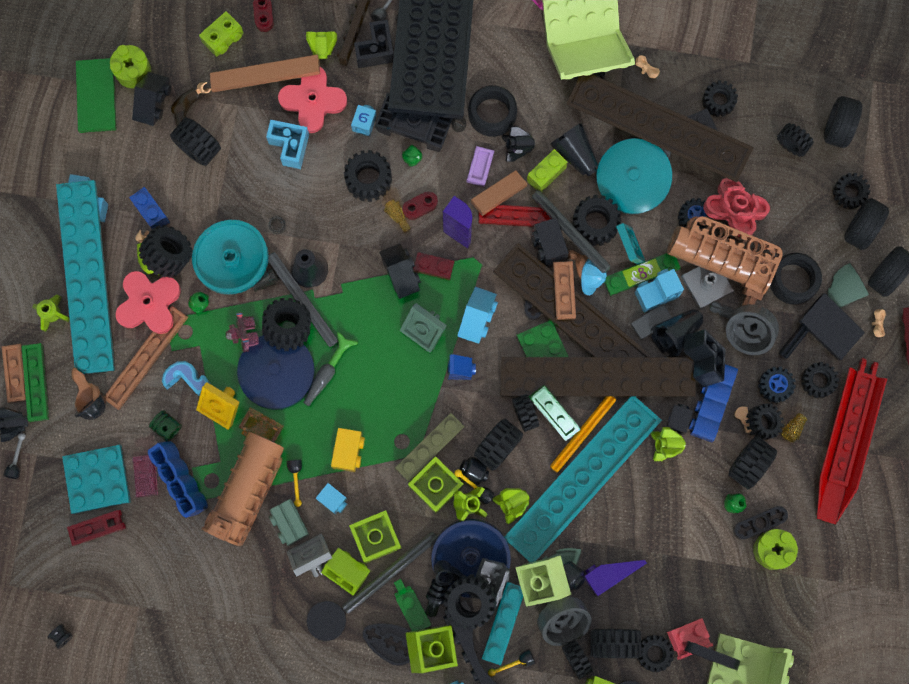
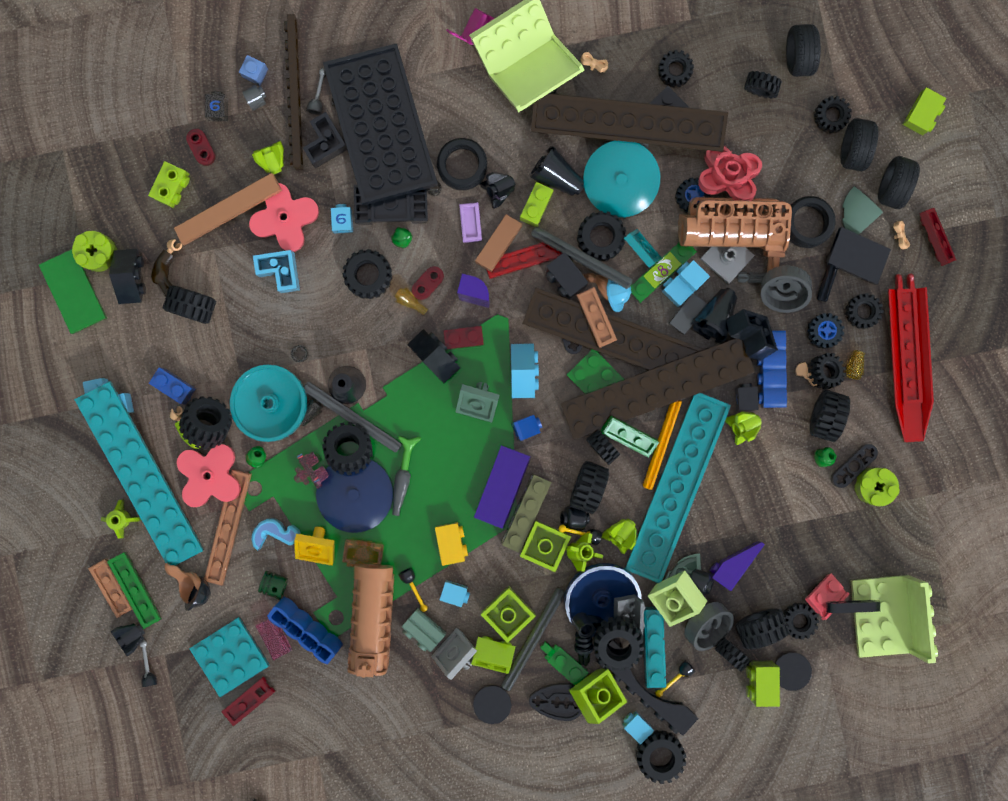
camera: 20 degrees left, 10 degrees up
(417, 415) = (502, 487): none -> dark purple brick

